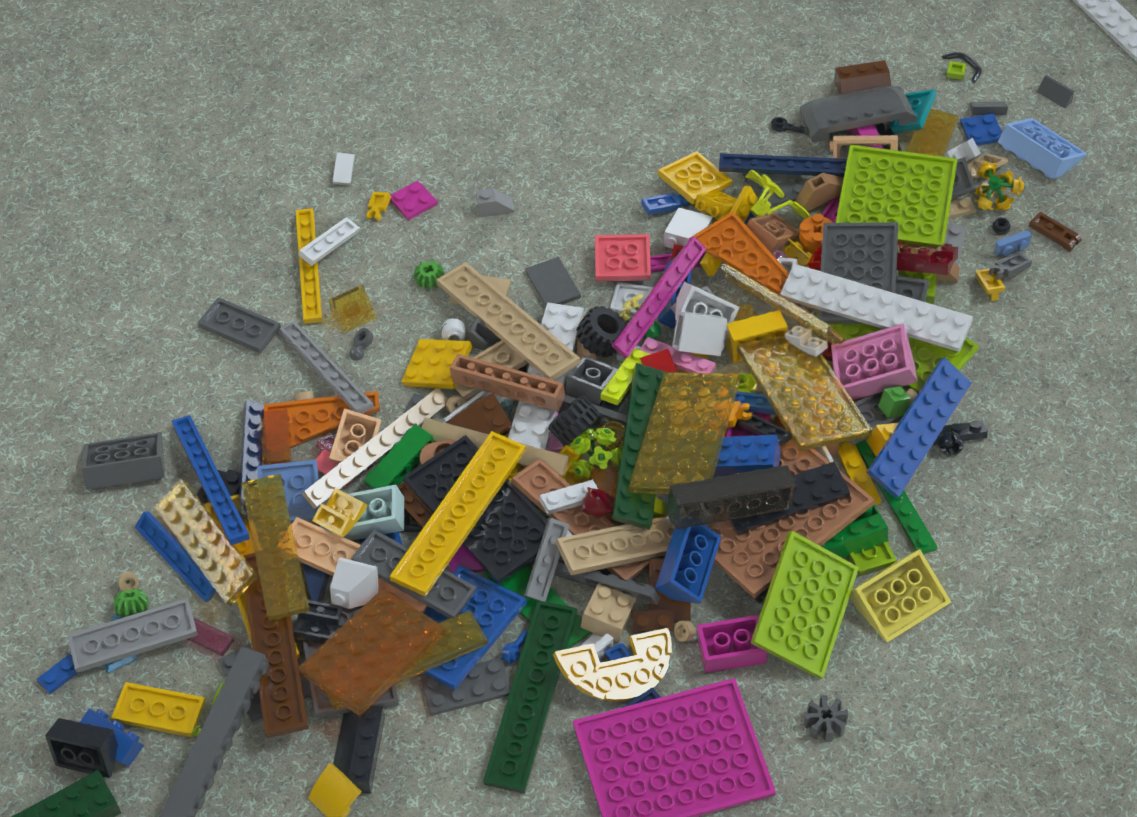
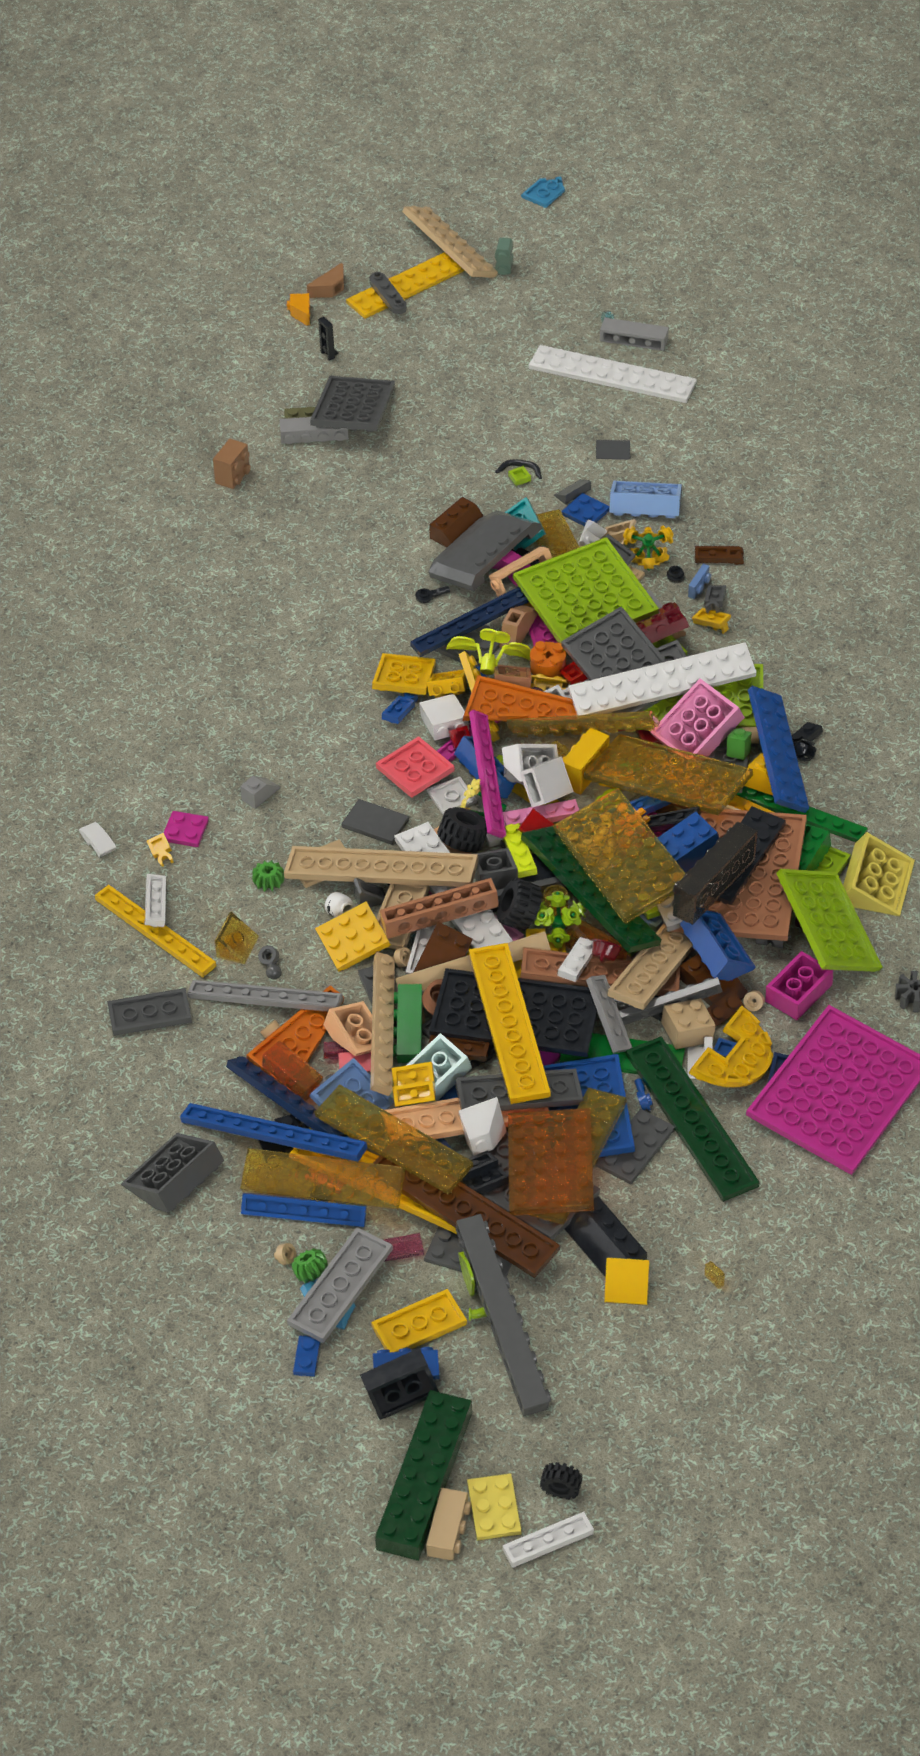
camera: 40 degrees left, 5 degrees down
(803, 340) = (626, 740): white slope -> none

